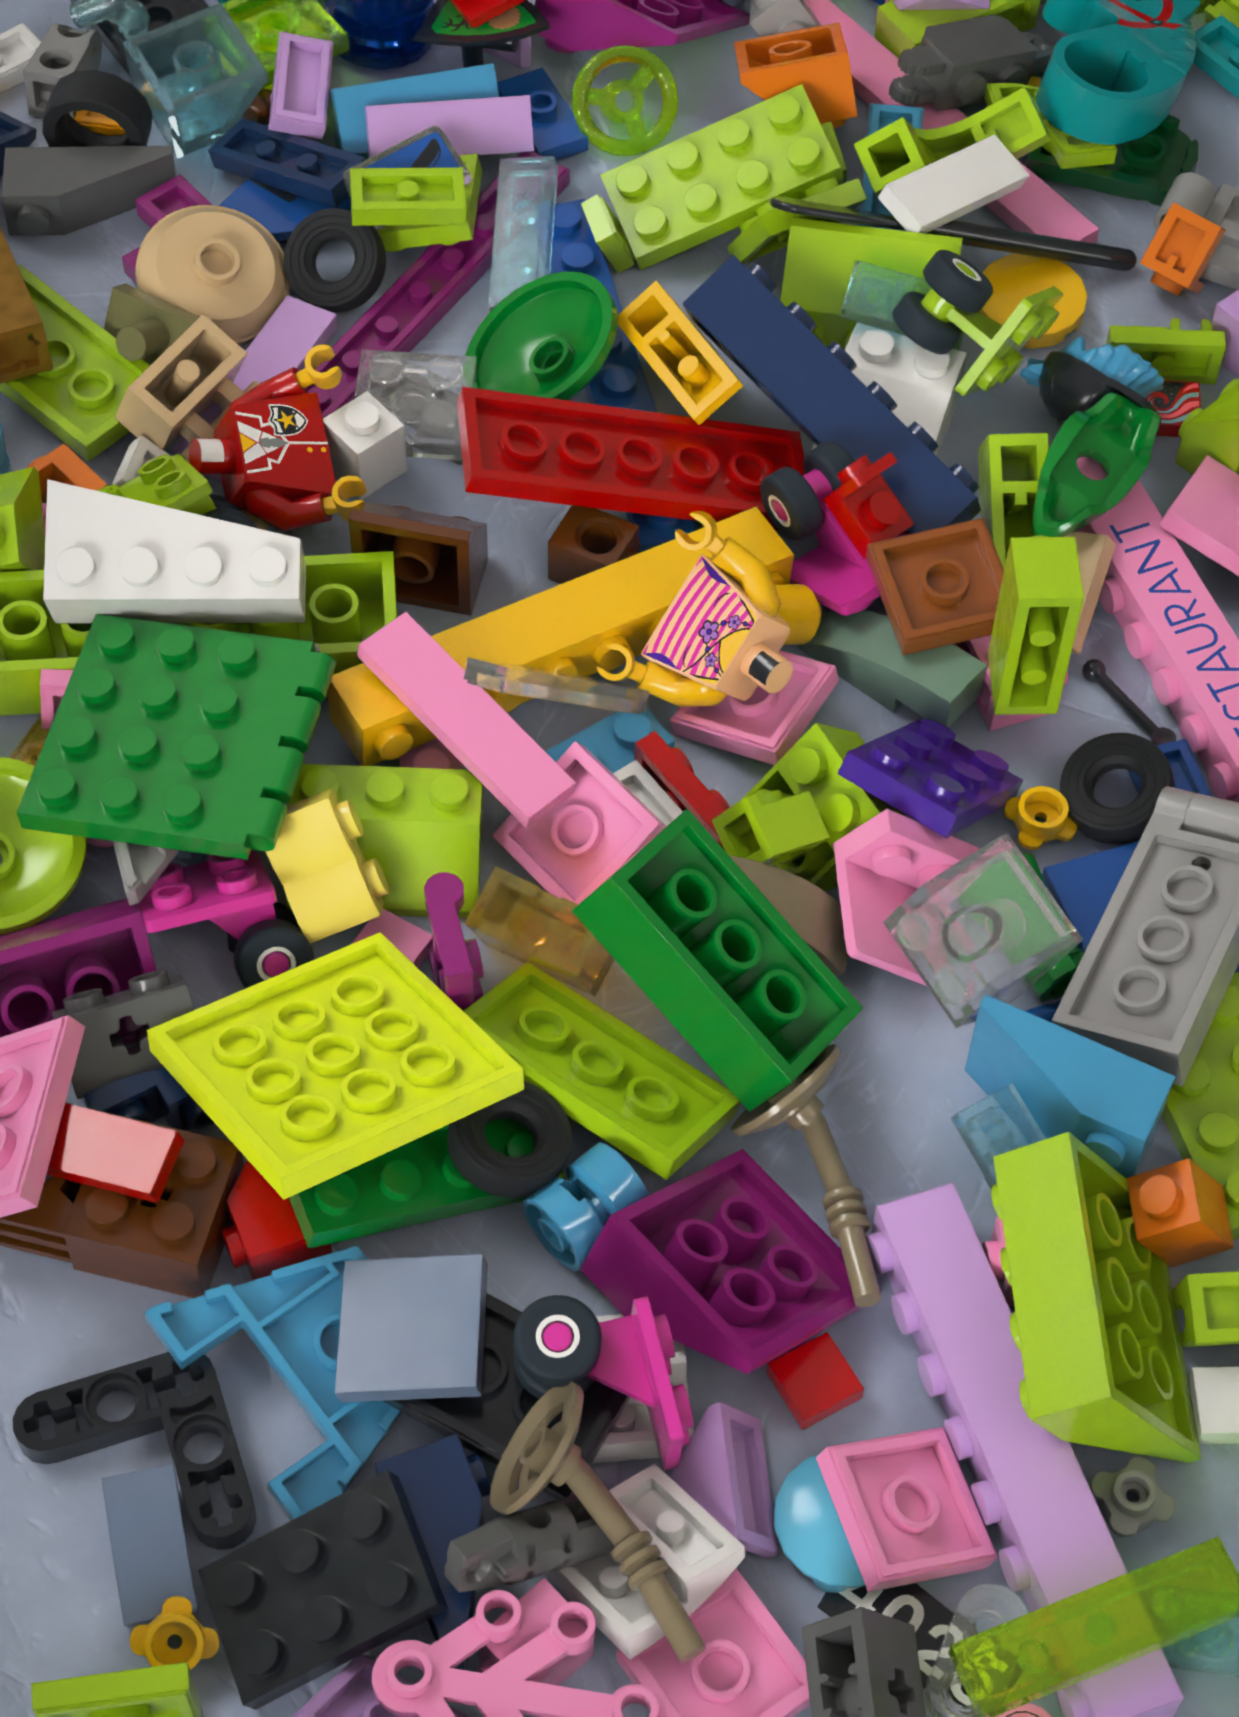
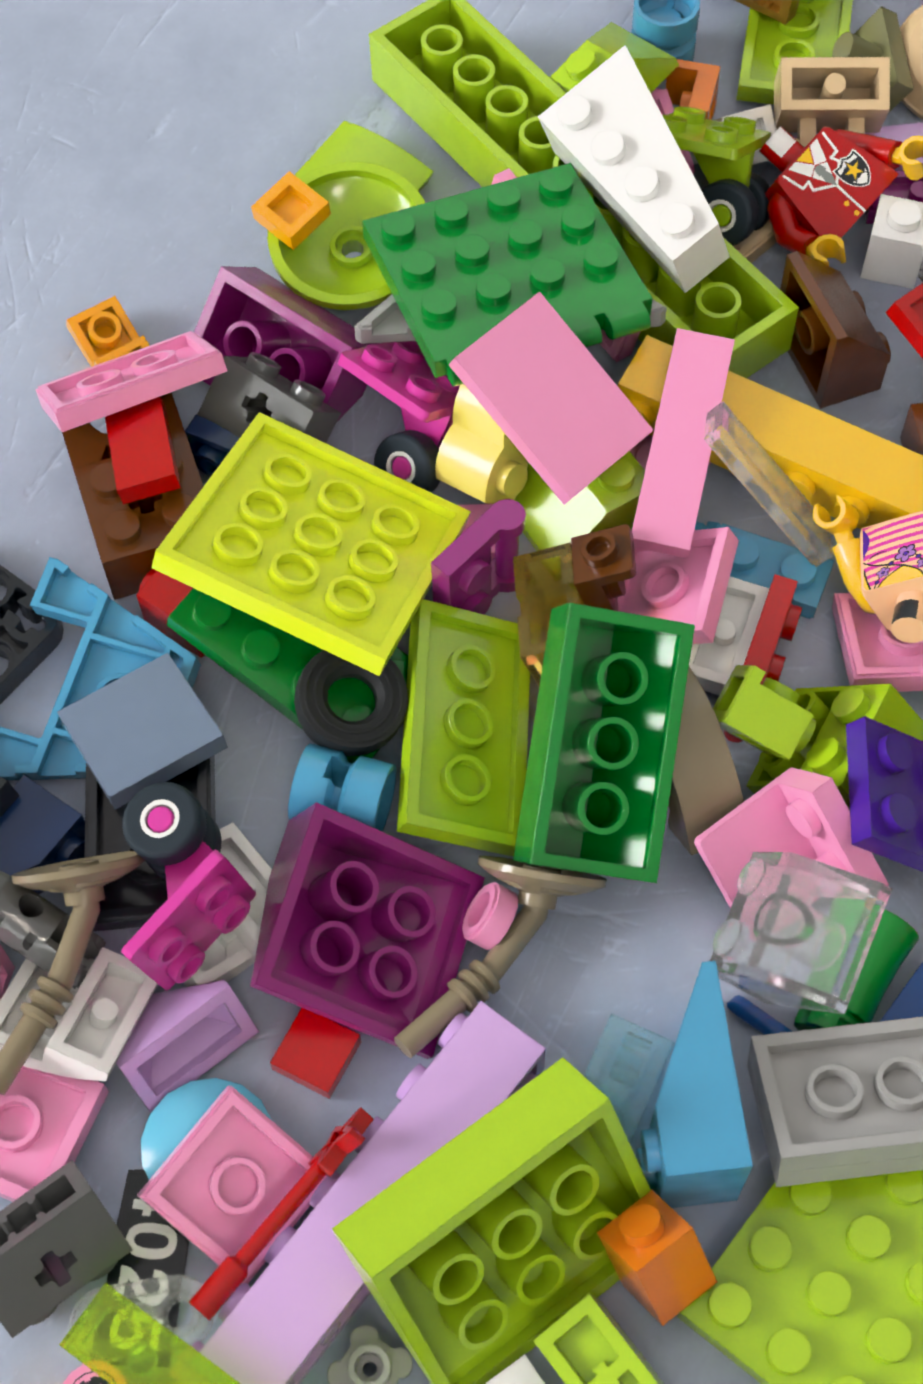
camera: 60 degrees right, 5 degrees up
(354, 780) = (551, 397): none -> bright pink tile
(536, 852) = (602, 564): none -> reddish brown bracket
(792, 1159) = (490, 915): none -> bright pink tile
(936, 1407) = (234, 1269): none -> red piece

